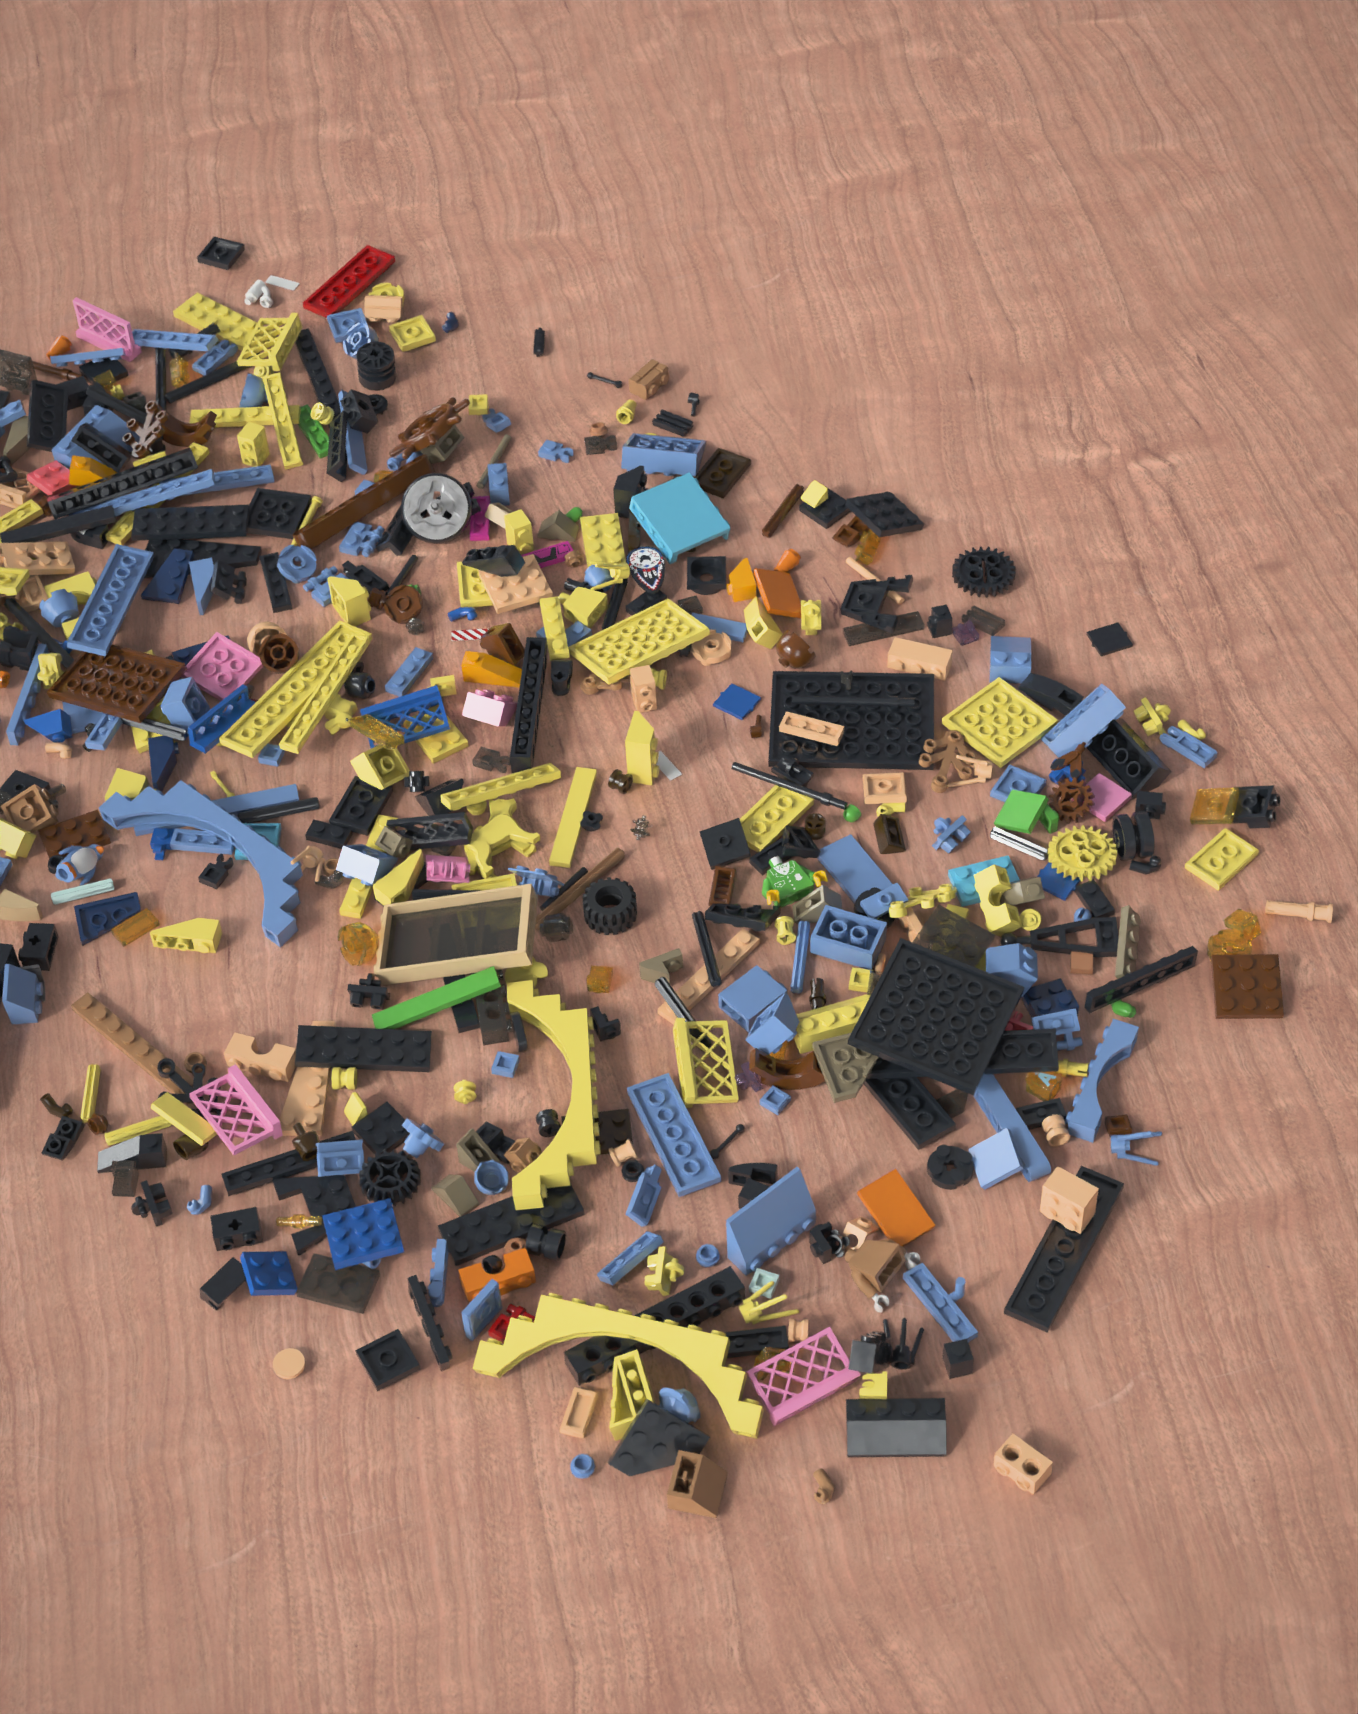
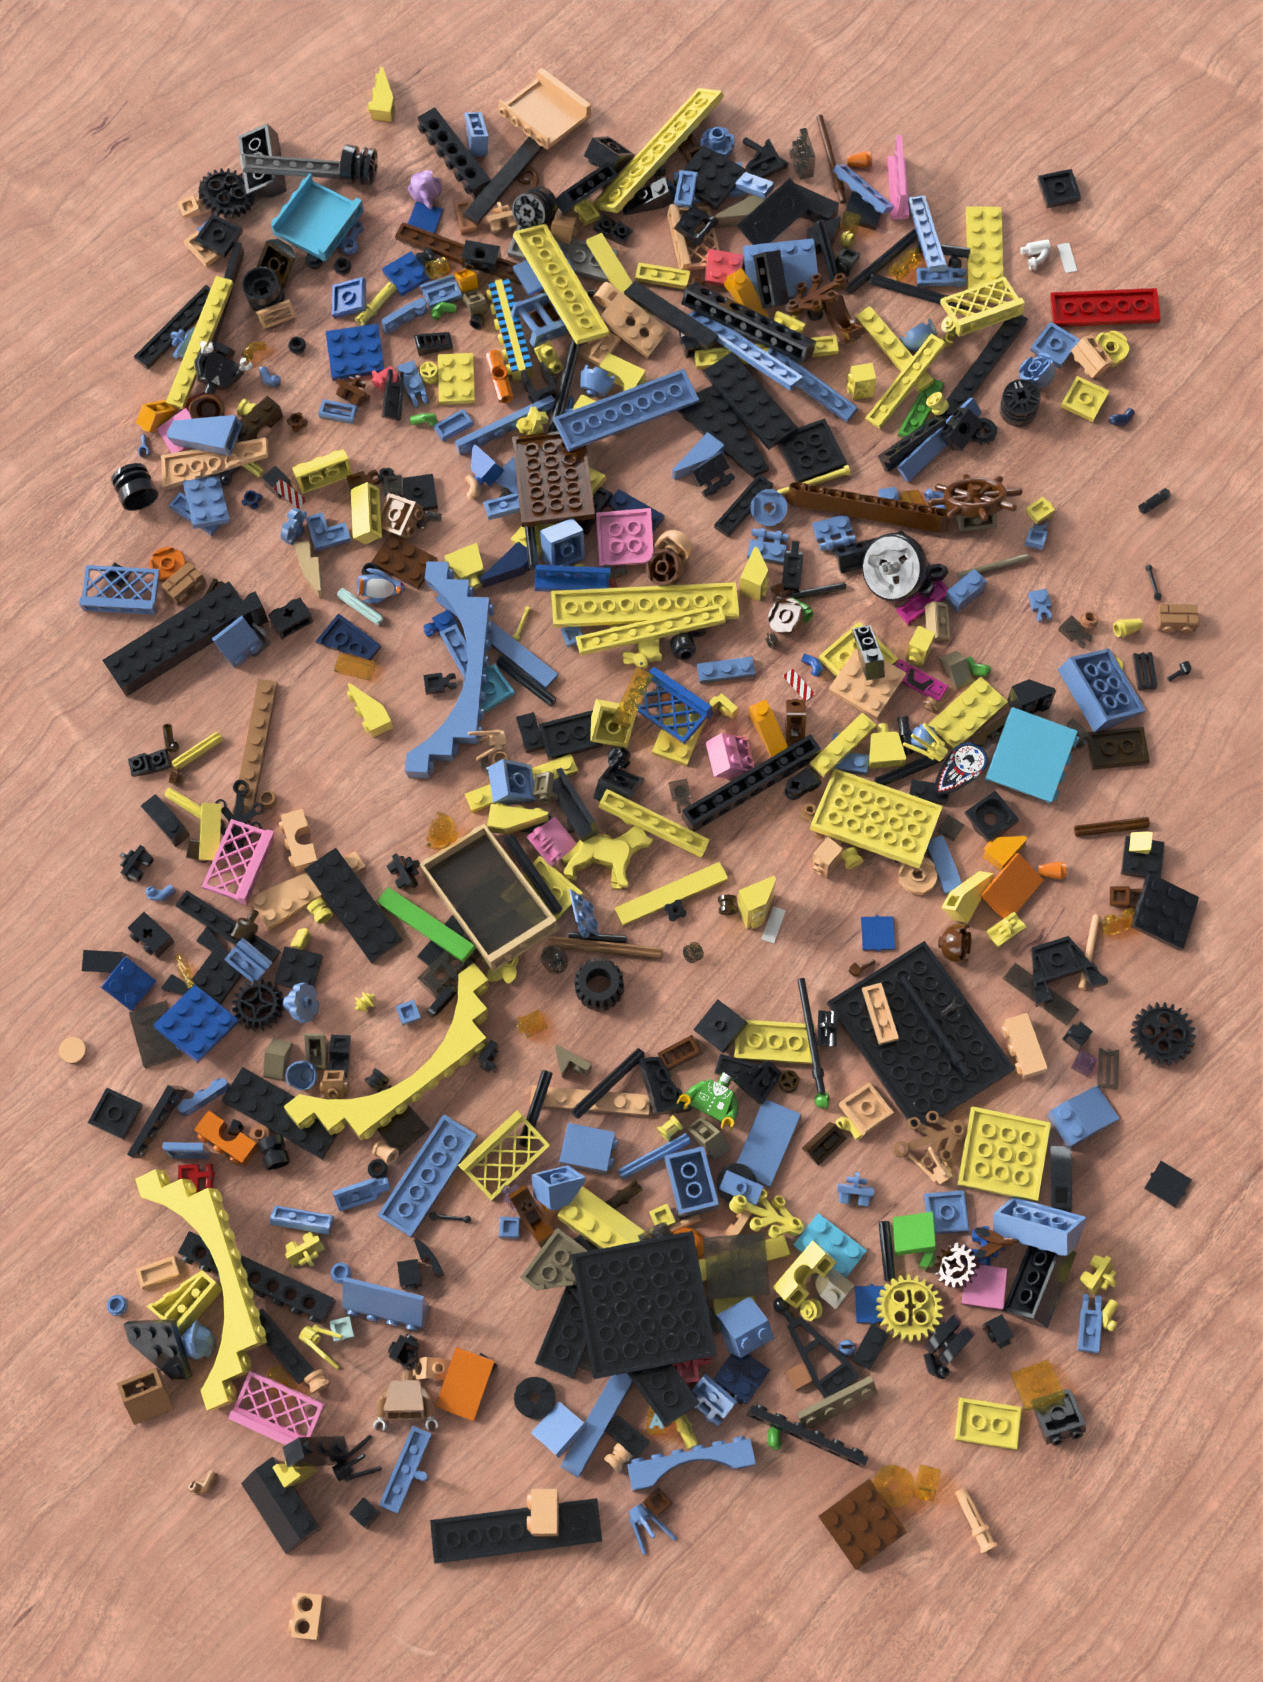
camera: 55 degrees right, 20 degrees up
(125, 1178) = (144, 830): clear smoke panel -> none
(170, 579) = (687, 430): dark blue wing -> none

